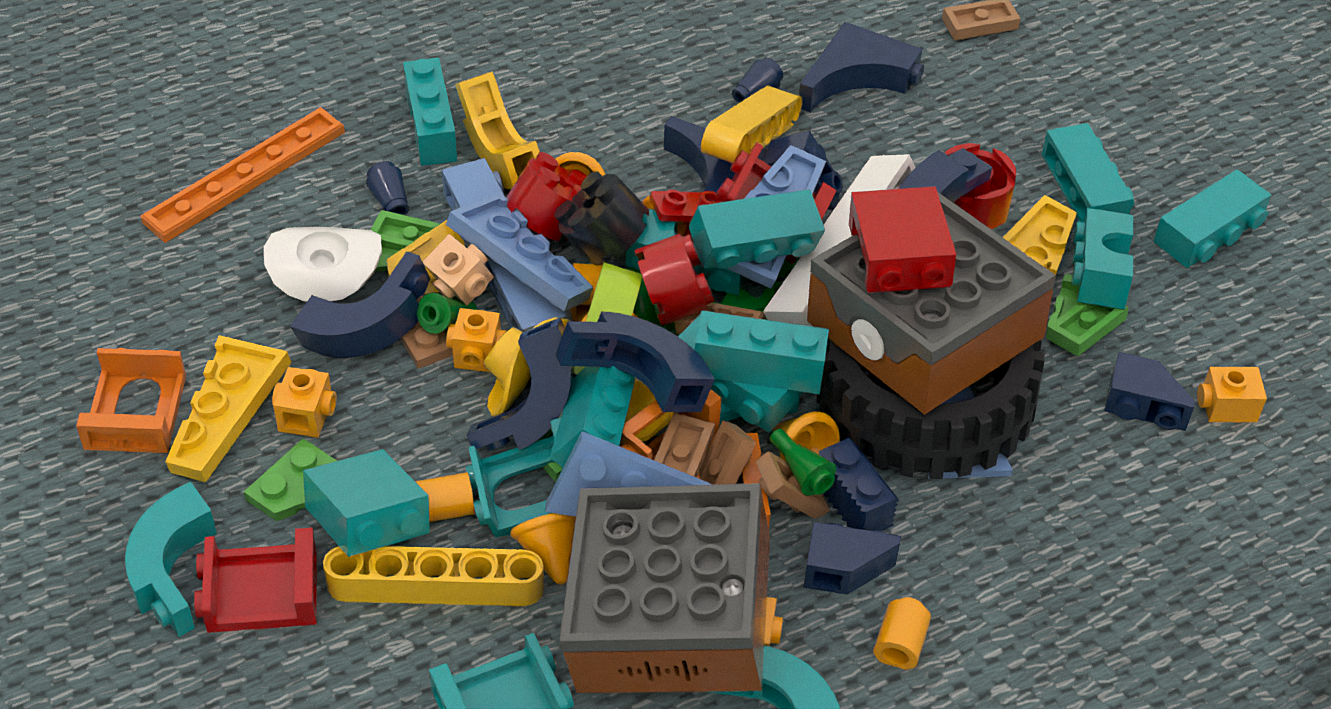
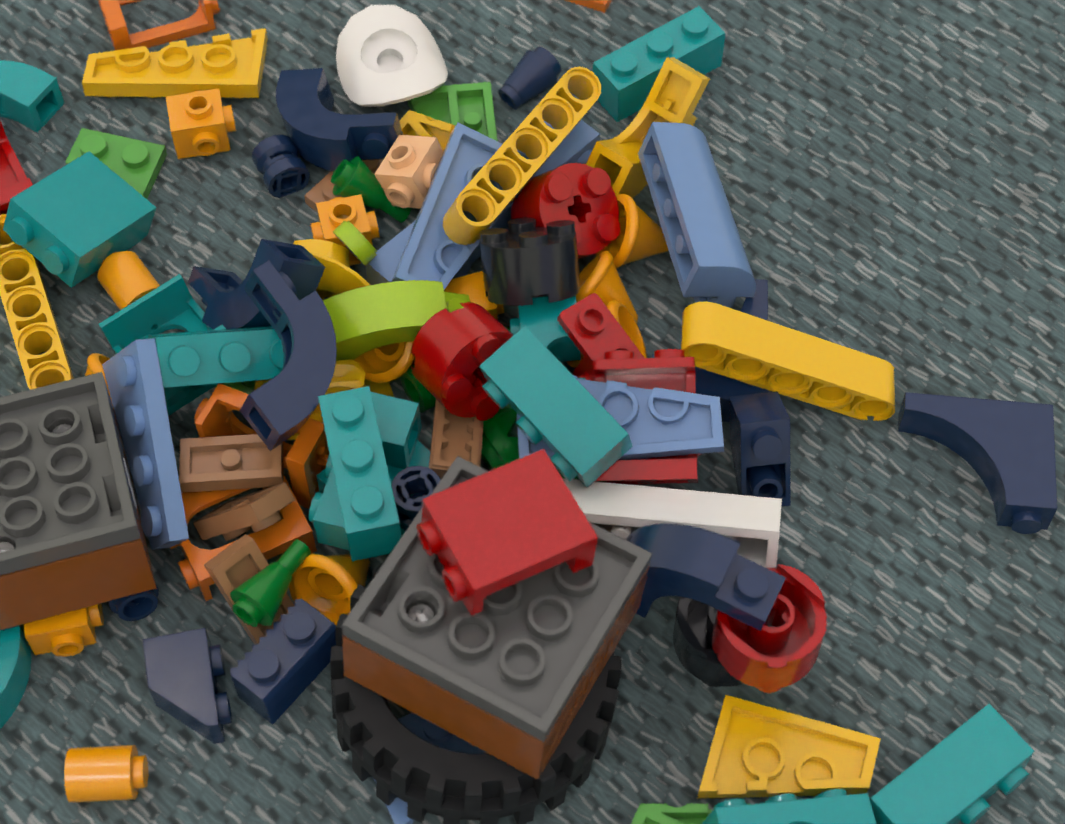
camera: 70 degrees right, 10 degrees up
(379, 365) = (280, 164): none -> dark blue wheel
(504, 188) = (512, 169): none -> yellow beam
(516, 315) = (355, 242): none -> lime tile
(606, 129) = (695, 215): none -> medium blue brick
(760, 74) = (909, 354): dark blue cone -> none

